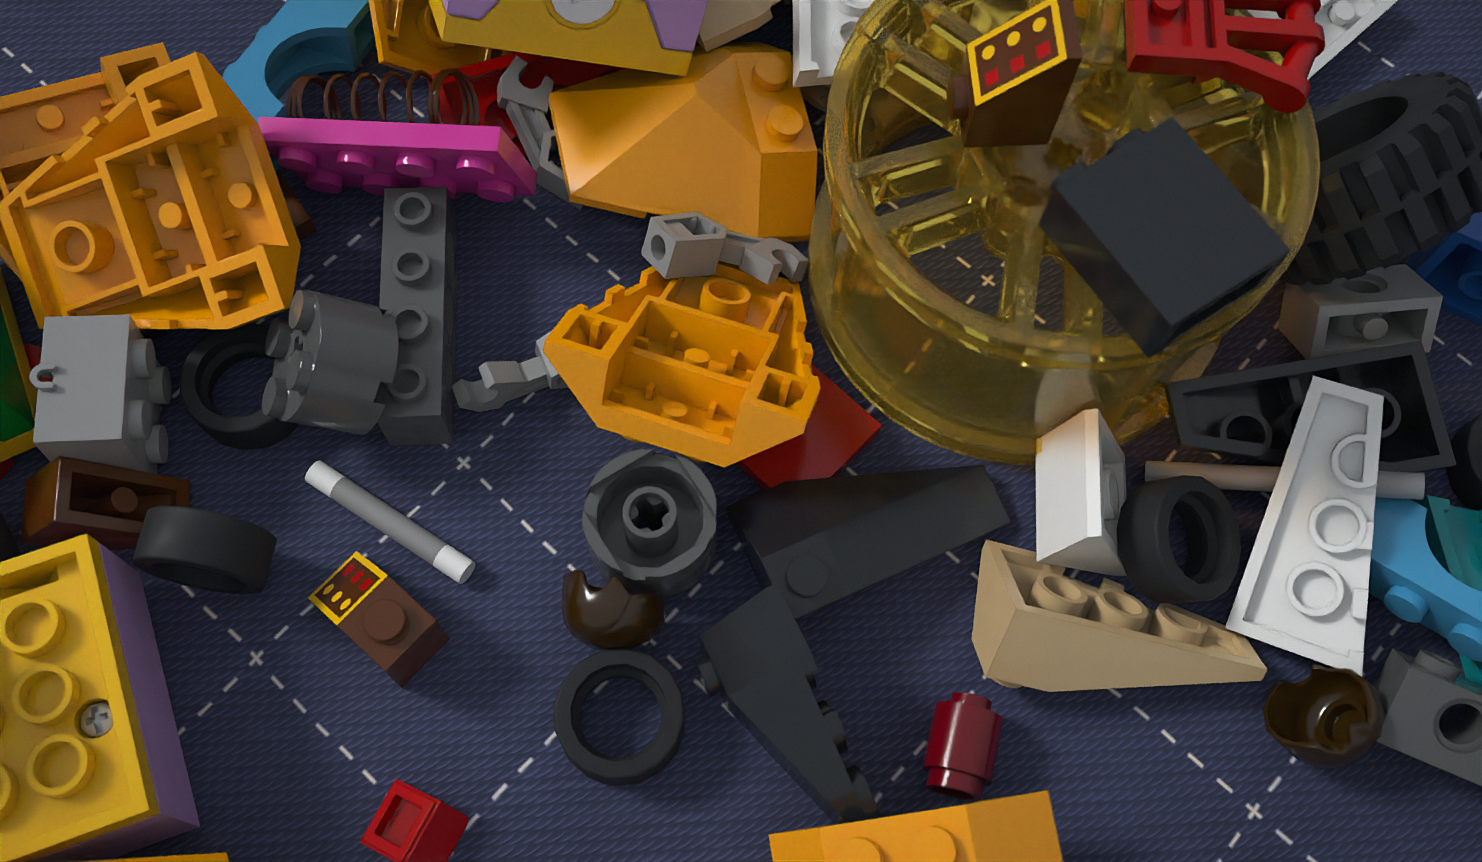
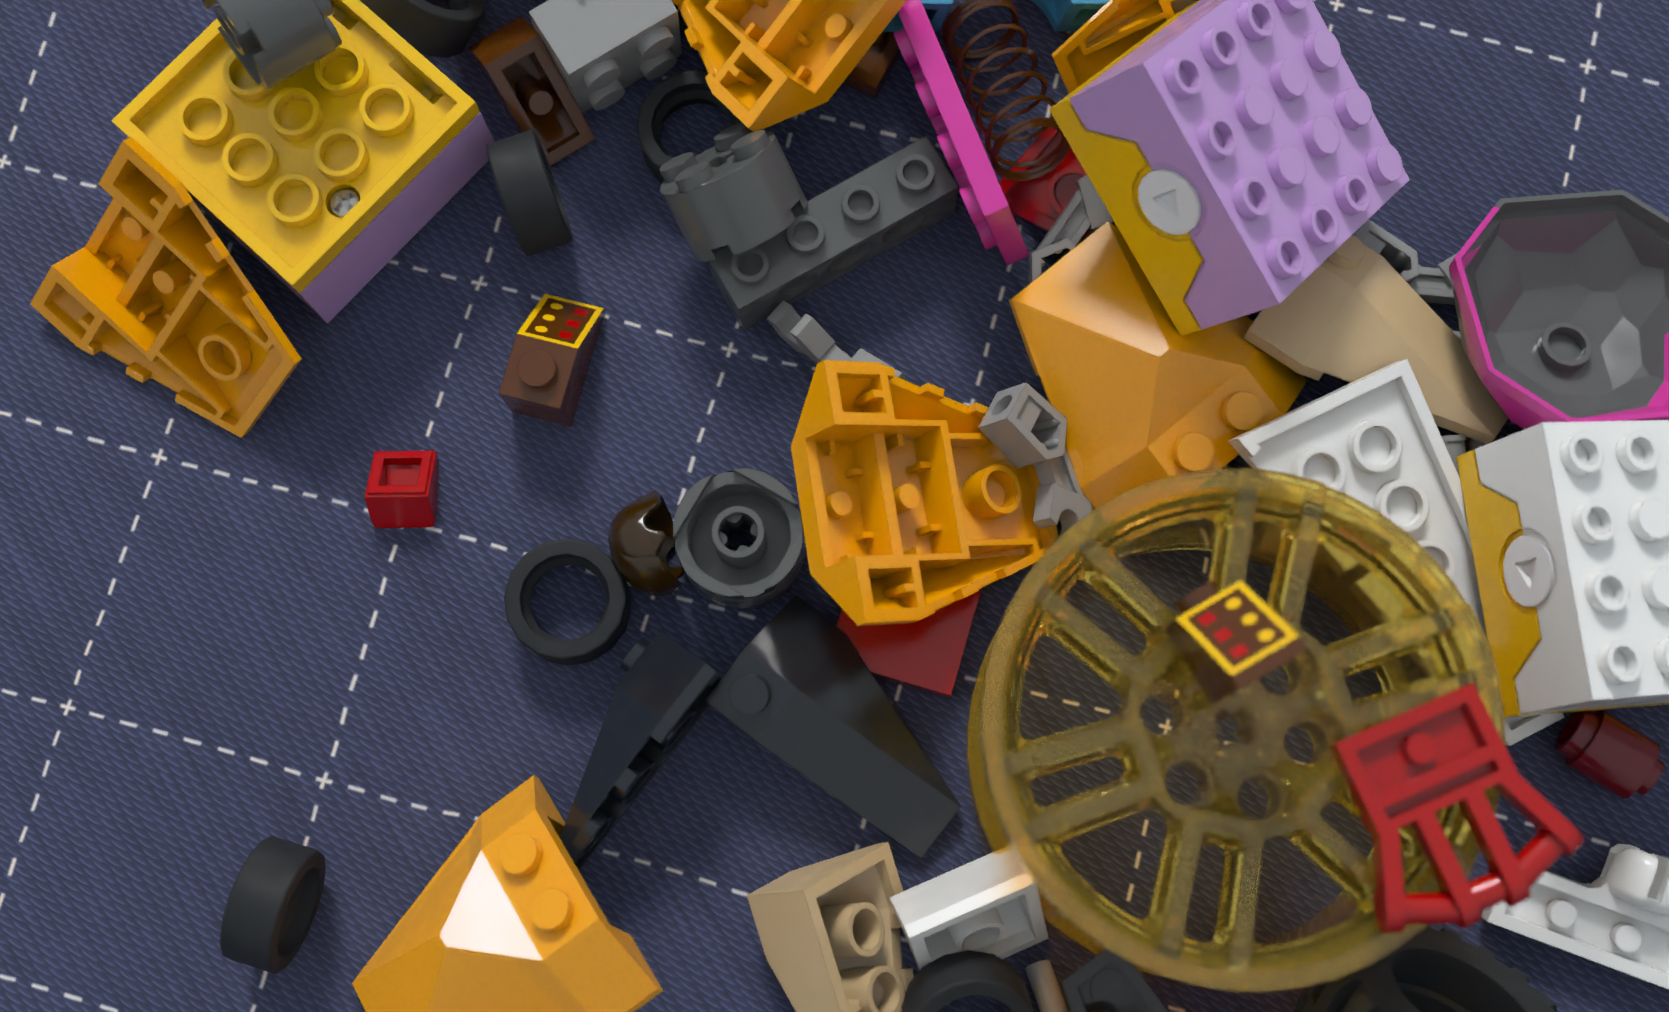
camera: 70 degrees right, 10 degrees up
(390, 522) = (642, 320): light grey bar -> none
(962, 746) = (683, 905): dark red brick -> none
(1160, 235) = (1152, 846): black brick -> none

